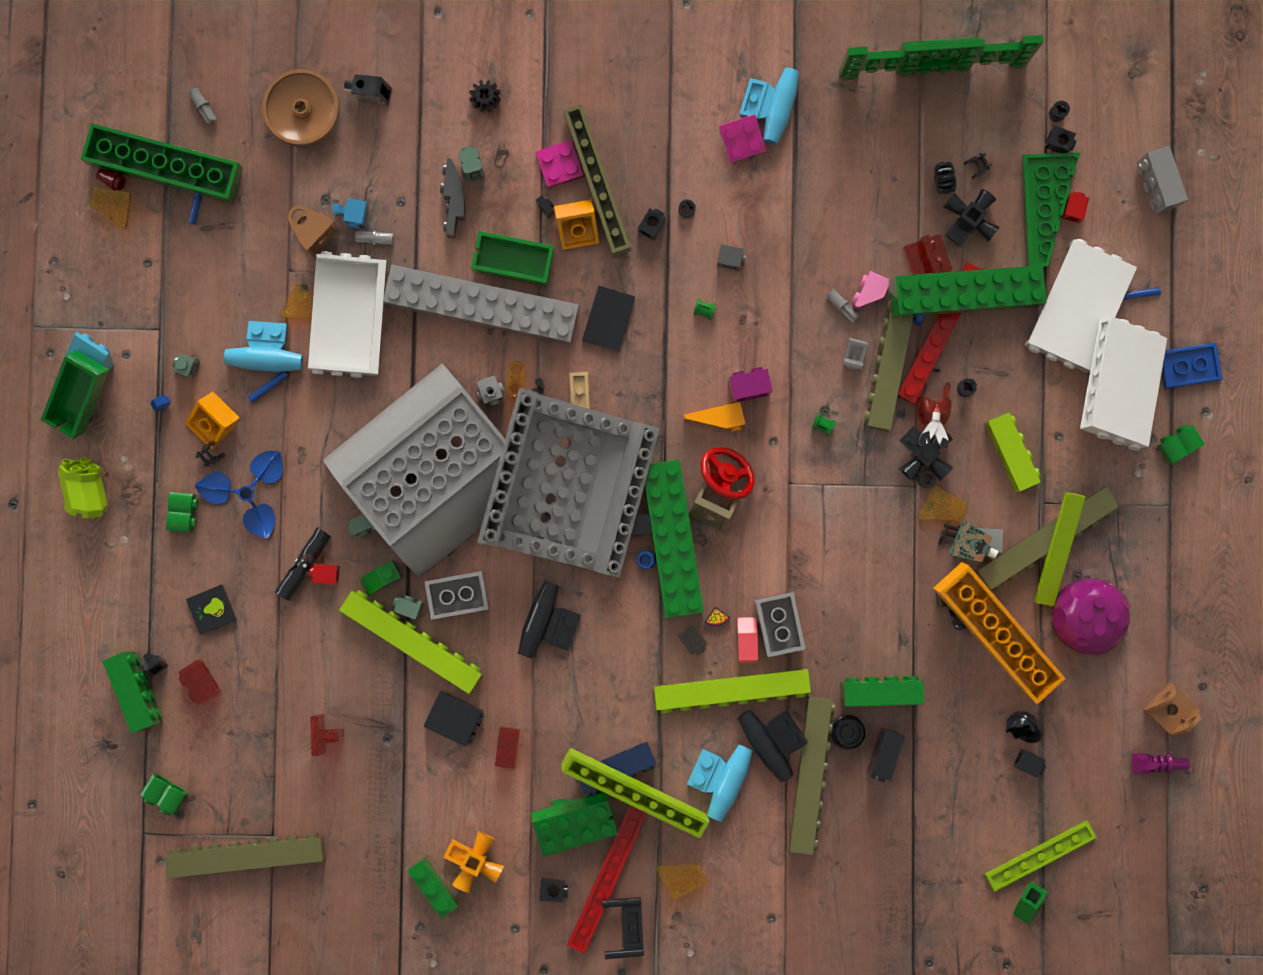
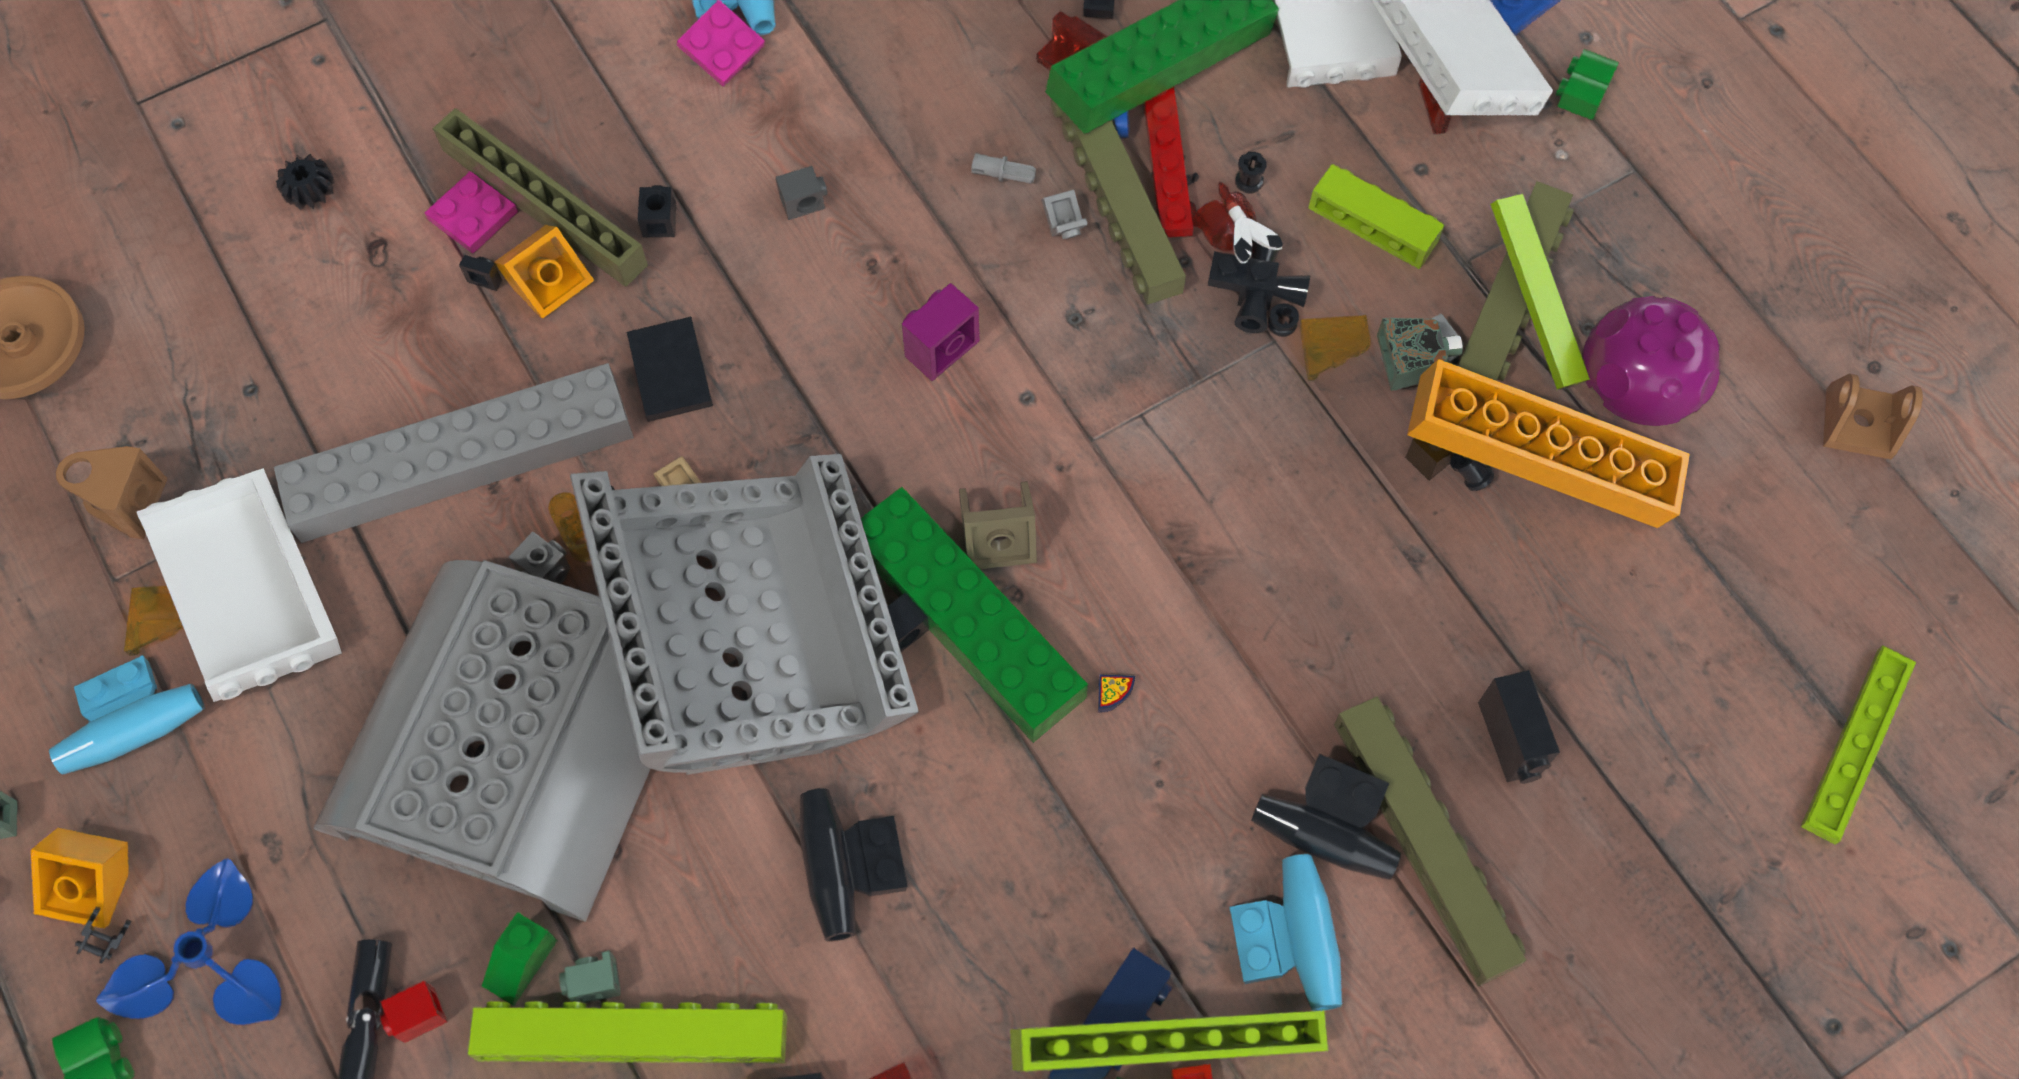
camera: 30 degrees left, 20 degrees down
(266, 387) = (158, 770): blue piece -> none
(354, 212) = (177, 436): dark azure brick -> none
(360, 526) = (436, 892): sand green brick -> none
(369, 89) = (115, 258): black torso -> none
(374, 237) = (230, 455): light grey axle -> none
(453, 191) = (328, 333): dark grey slope -> none
(457, 595) = (665, 905): light grey brick -> none
(471, 164) = (331, 270): sand green brick -> none
(512, 258) = (468, 361): green piece -> none
(646, 560) = (945, 669): blue tile -> none
(682, 205) = (691, 176): black bush -> none
(692, 640) = (1099, 745): clear smoke brick -> none
(704, 309) = (807, 277): green bush -> none
(720, 417) = (923, 405): light orange slope -> none
(725, 473) = (986, 473): red piece -> none
(732, 689) = (1210, 784): lime brick -> none
(747, 640) = (1185, 692): coral slope -> none
(779, 624) = (1217, 636): light grey brick -> none
(823, 424) = (1094, 333): green bush -> none
(848, 732) = (1436, 735): black piece -> none
(872, 291) = (1032, 126): bright pink slope -> none
(882, 692) = (1442, 638): green piece -> none
(944, 532) = (1361, 373): black piece -> none
(1024, 726) = (1686, 565): black piece -> none
(1029, 763) = (1733, 613): black brick -> none
(1030, 902) = (1908, 818): green slope -> none
(1143, 763) = (1896, 510): magenta piece -> none

